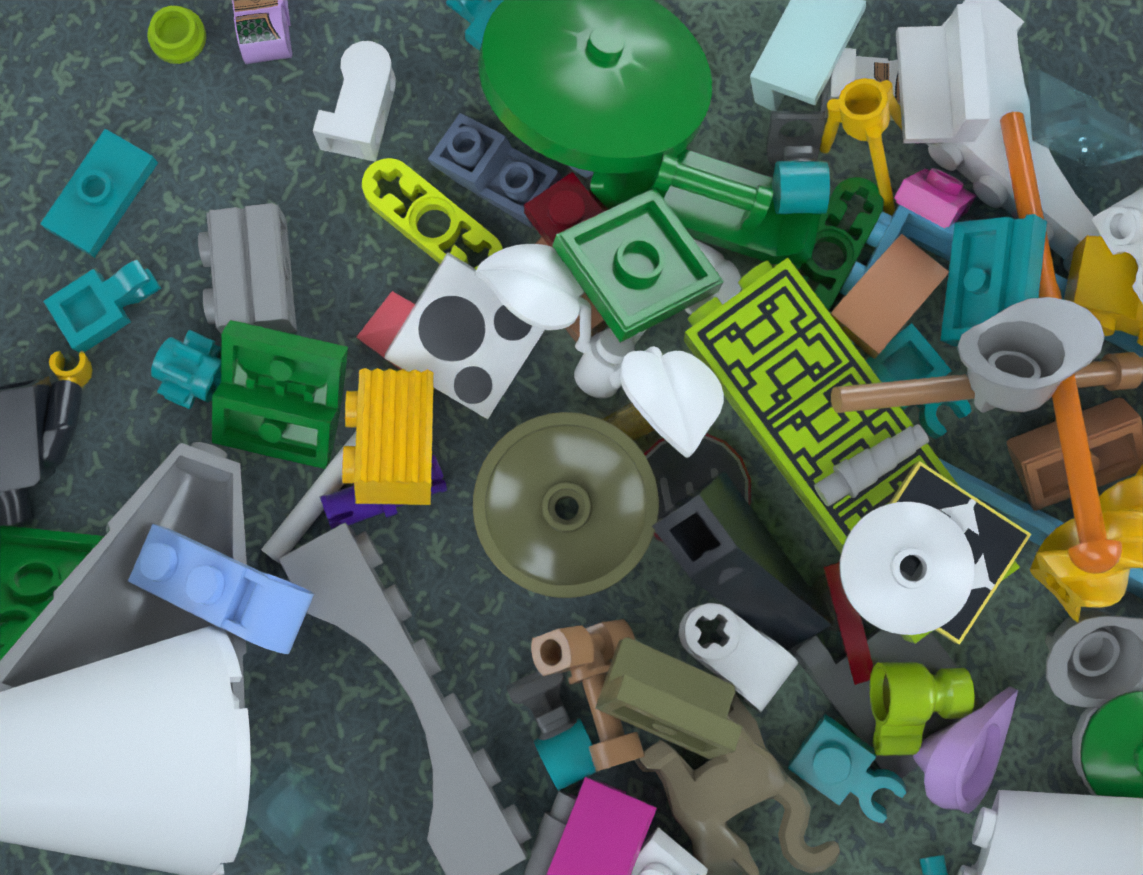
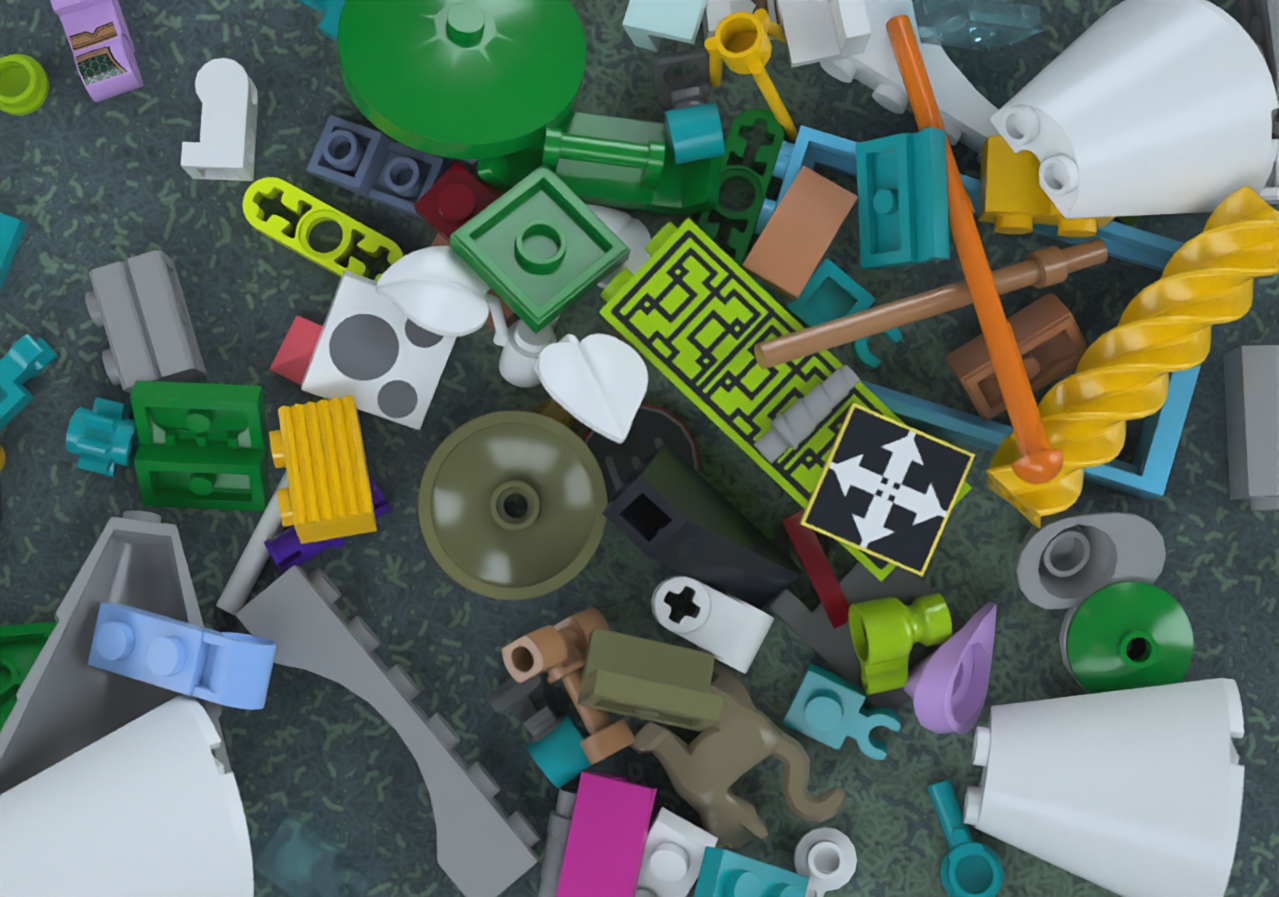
camera: 10 degrees left, 5 degrees up
(873, 574) = (823, 502): white dish -> none
(935, 196) = (832, 119): dark pink plate -> none
(1028, 351) = (942, 272): light grey piece -> none

